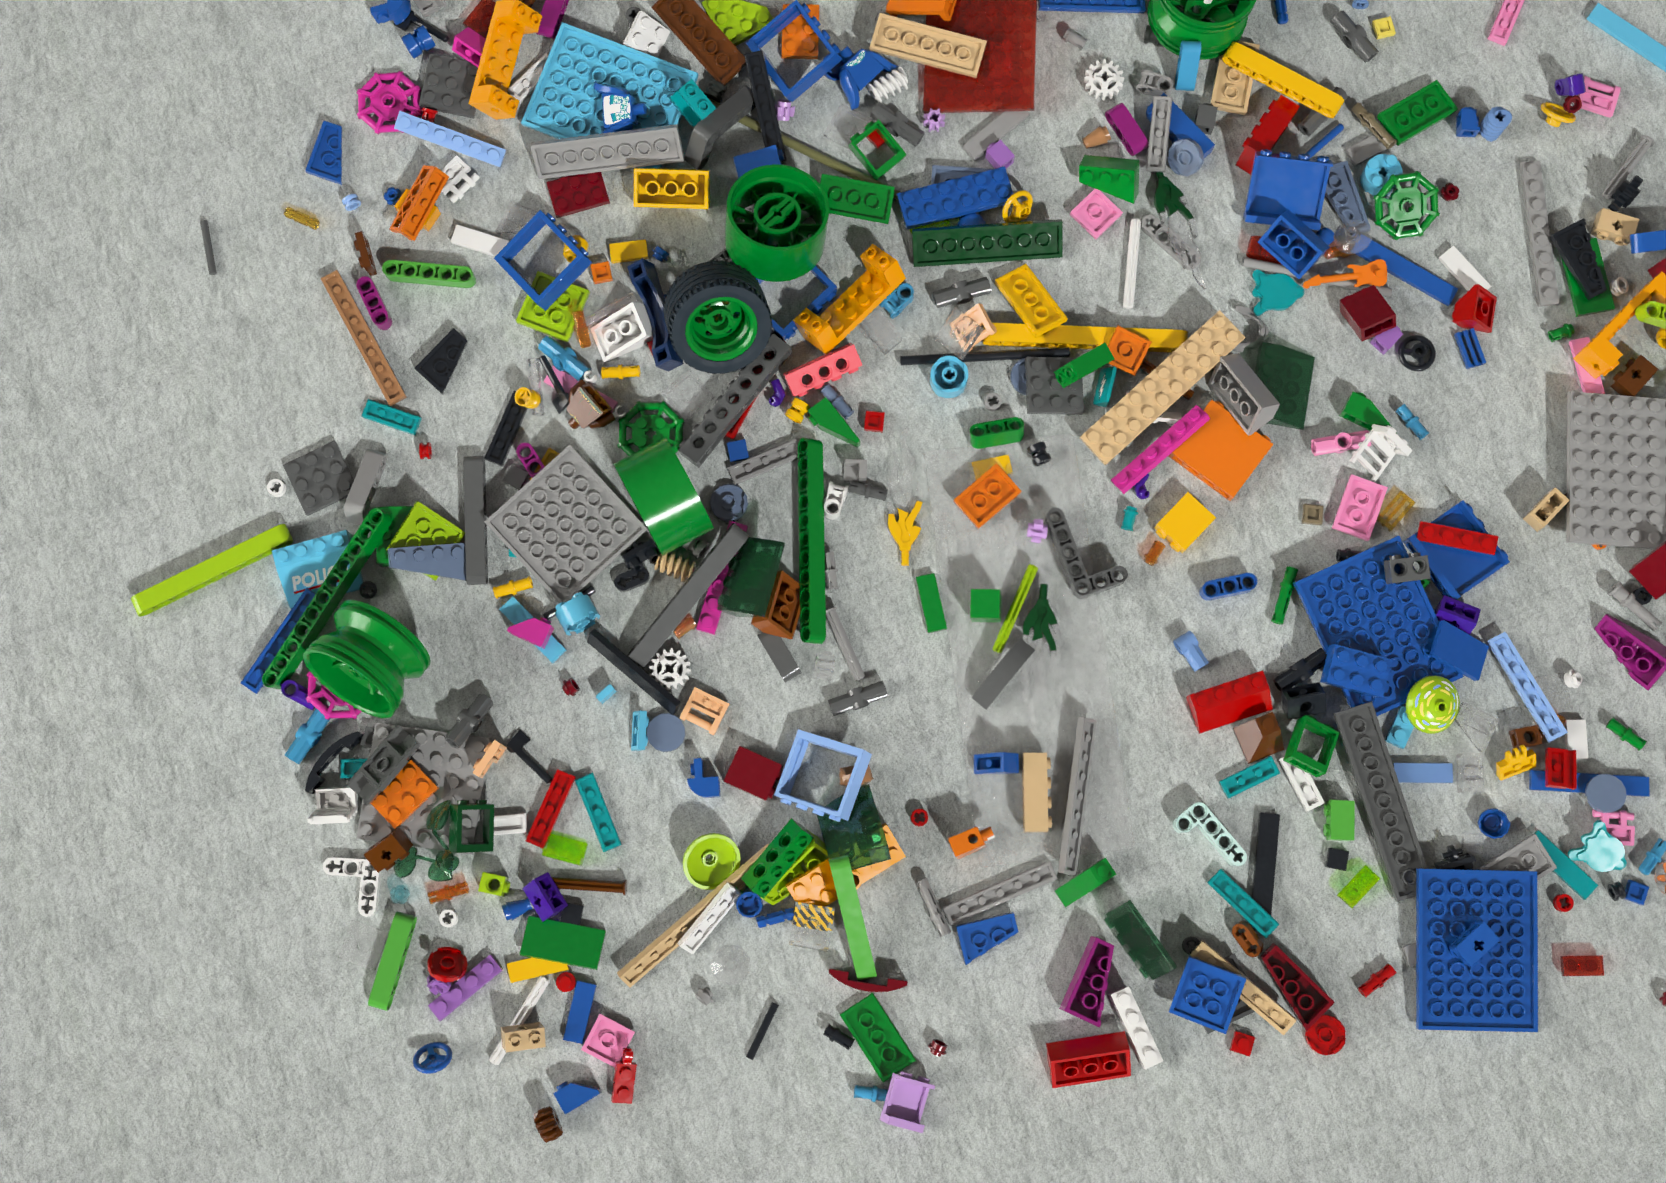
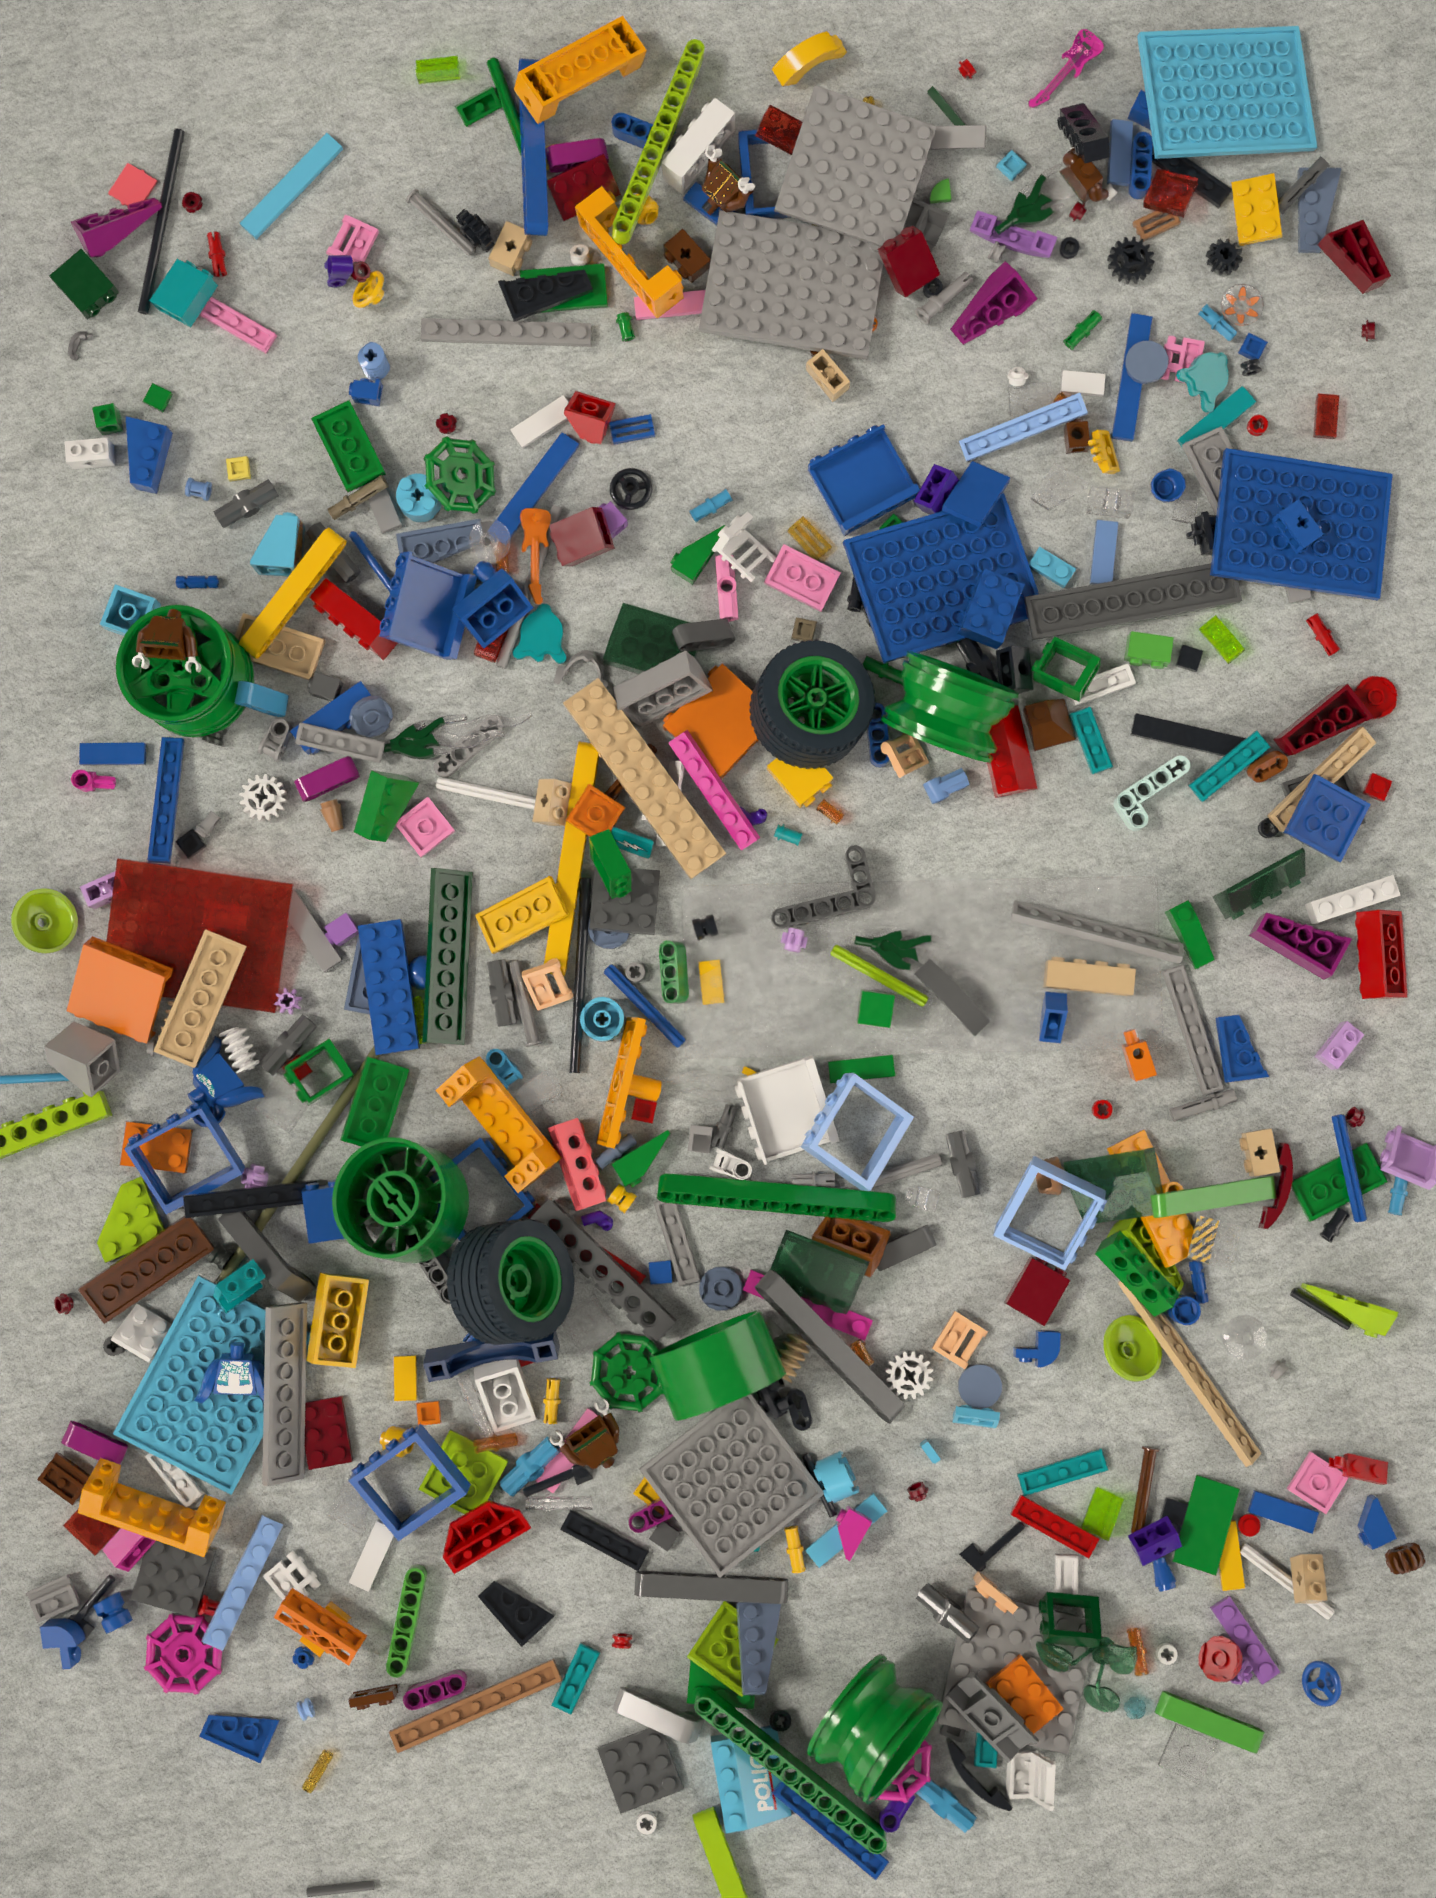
camera: 85 degrees left, 5 degrees up
(360, 872) = (1106, 1750): white beam -> none
(388, 850) = (1087, 1717): reddish brown brick -> none
(485, 884) = (1135, 1608): lime brick -> none
(505, 322) = (481, 1533): none -> red wedge
(527, 398) = (574, 1514): yellow wheel -> none
(633, 671) = (908, 1417): black tile -> none
(660, 254) = (413, 1340): blue plate -> none
(709, 918) = (1194, 1355): white tile -> none
(760, 1070) = (1363, 1315): none -> lime wedge
(862, 627) = (886, 1146): none -> light blue window
(888, 540) = (783, 1107): none -> white panel
(888, 970) = (1264, 1163): none -> tan brick
(891, 1044) = (1349, 1168): none -> blue axle
(895, 403) = (626, 1083): none -> light orange plate
(942, 316) = (524, 1004): none -> light grey axle
(958, 333) = (552, 1002): clear tile -> none
(964, 413) = (644, 1006): none -> blue axle
(987, 496) = (747, 991): orange plate -> none
(1001, 1026) = (1339, 1045): none -> lavender brick
(1020, 210) = (412, 913): yellow piece -> none
(1057, 28) = (190, 843): none -> black tile
(1131, 314) = (551, 802): none -> tan brick
(1209, 613) = (908, 760): none -> light nougat plate
(1262, 636) = (949, 707): none -> green wheel
(1268, 492) = (843, 682): none -> black wheel
(1295, 425) = (703, 635): none -> dark grey beam
(1322, 64) = (280, 547): none -> medium azure slope
(1407, 572) = (889, 538): dark grey brick -> none
(1424, 703) = (1026, 537): lime dish -> none
(1457, 538) = (850, 477): red plate -> none
(1560, 768) = (1115, 405): red plate -> none

